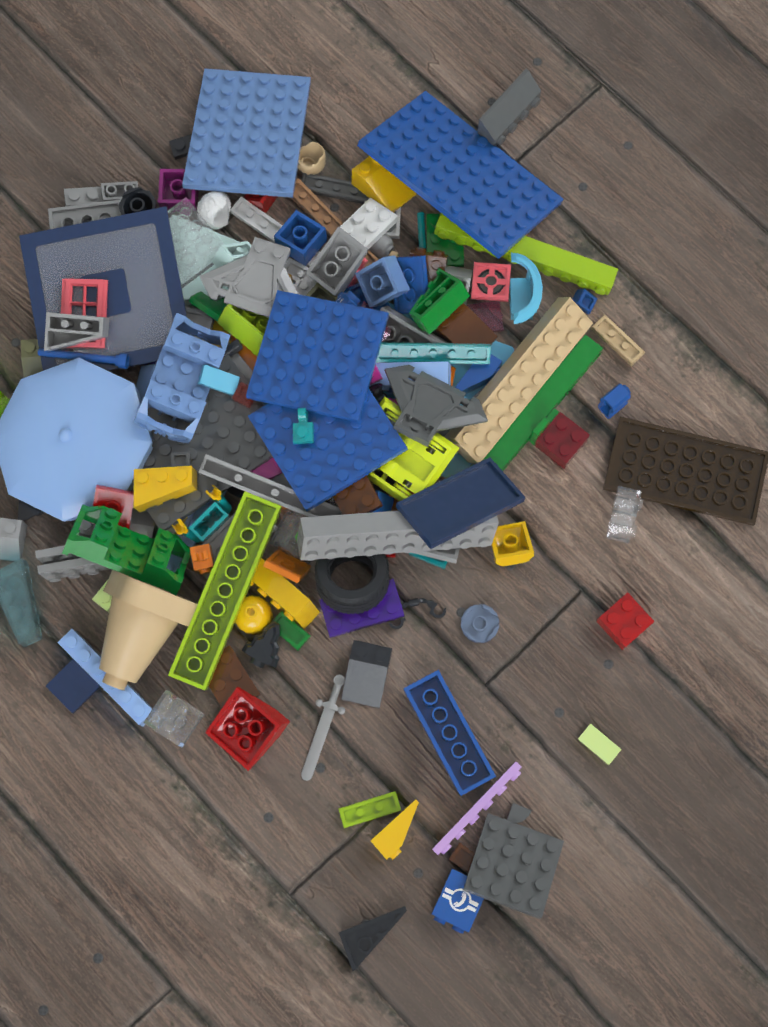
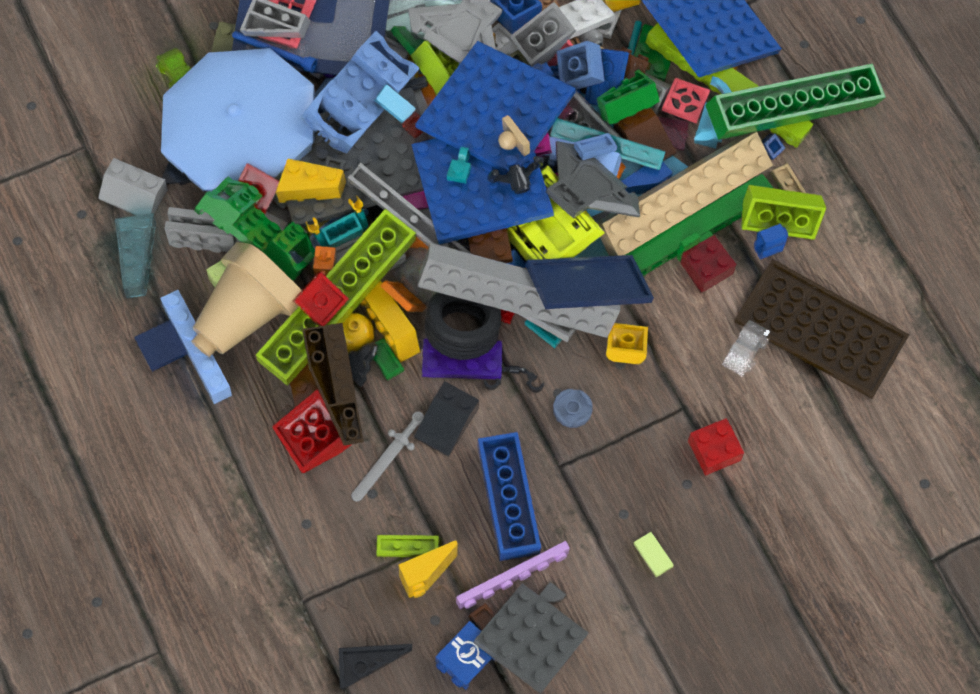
camera: 10 degrees right, 10 degrees down
(173, 718) = (247, 400): clear brick -> none
(212, 604) = (320, 299): none -> red tile
(250, 678) = (333, 377): none -> dark brown wedge
(345, 385) = (513, 137): none -> tan tile
(362, 423) = (517, 176): none -> black piece
(424, 362) = (595, 146): none -> medium blue tile
(596, 254) = (794, 101): none -> green brick
(623, 364) = (794, 210): none -> lime slope

